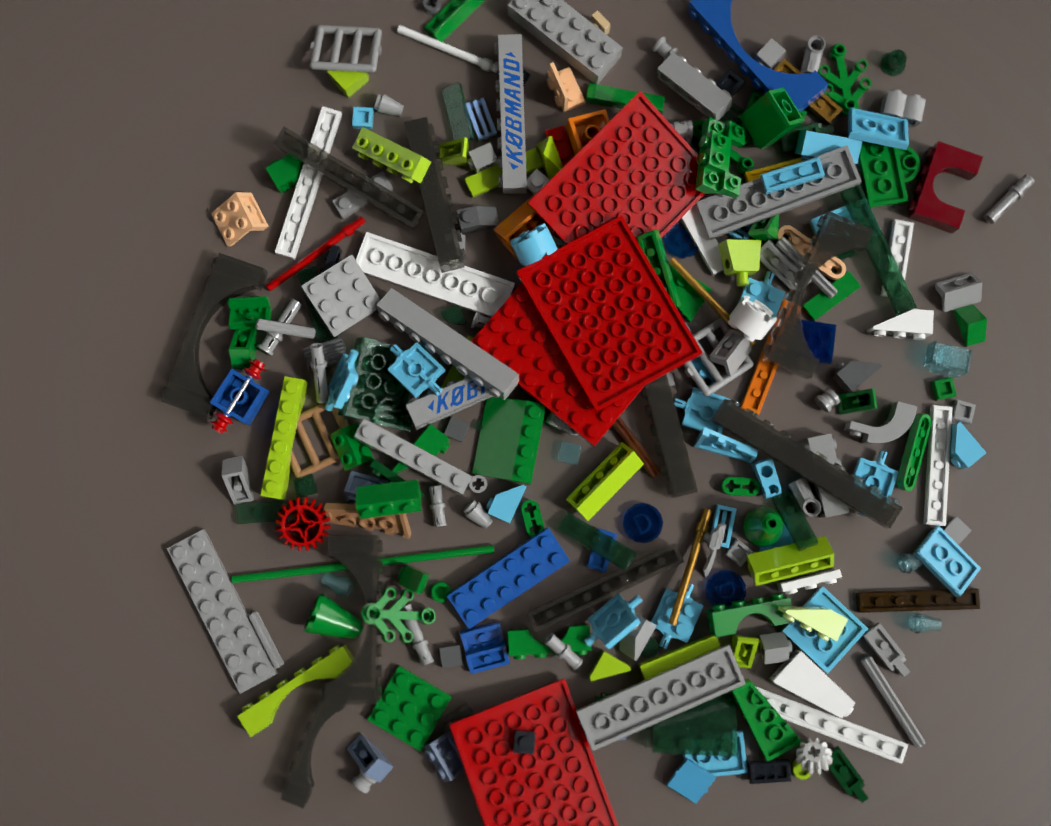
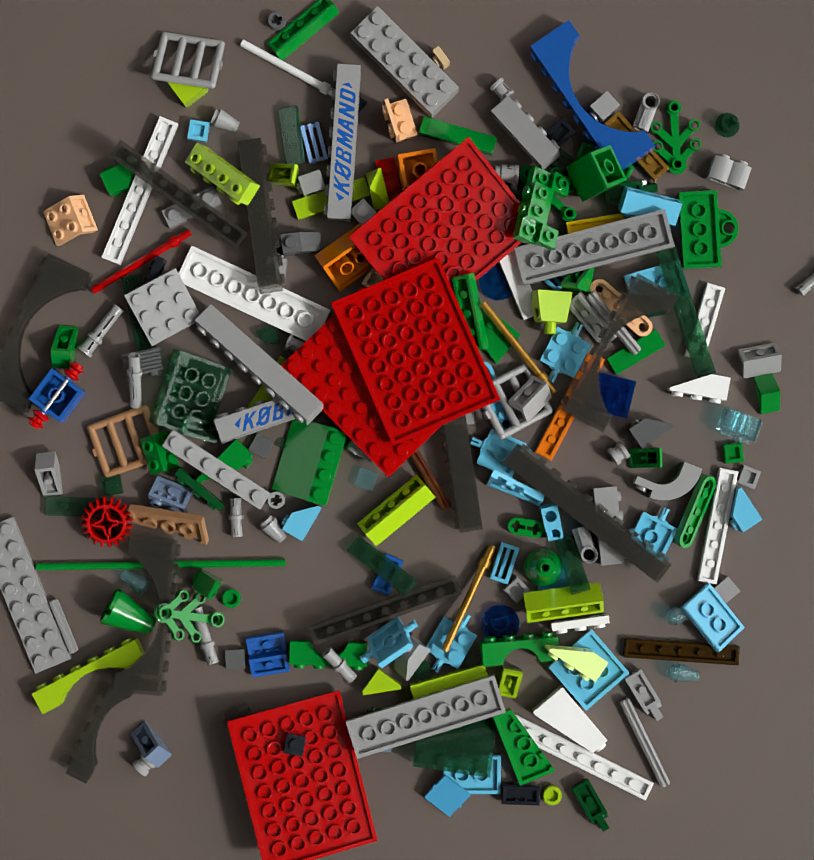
camera: 10 degrees right, 5 degrees up
(247, 310) = (73, 314): green bracket -> none
(278, 464) = (91, 452): lime arch -> none
(284, 328) = (105, 333): light grey axle -> none
(342, 381) = (155, 391): medium azure plate -> none
(388, 499) = (189, 508): green brick -> none
(409, 708) = (192, 702): green plate -> none
(416, 369) = (227, 386): medium azure plate -> none
(445, 757) = (220, 750): sand blue bracket -> none
(508, 577) = (296, 591): blue plate -> none
(533, 245) = (350, 278): medium azure brick -> none
(537, 516) = (320, 539): green beam -> none
(642, 523) = (429, 552): clear blue tile -> none
(714, 542) = (493, 578): light grey piece -> none
(752, 318) = (552, 369): white brick -> none
(775, 647) = (539, 682): light grey brick -> none
(792, 175) = (608, 233): medium azure tile -> none
(806, 759) = (568, 790): white gear -> none
(878, 128) = (700, 193): medium azure tile -> none
(927, 206) = (739, 273): dark red arch -> none

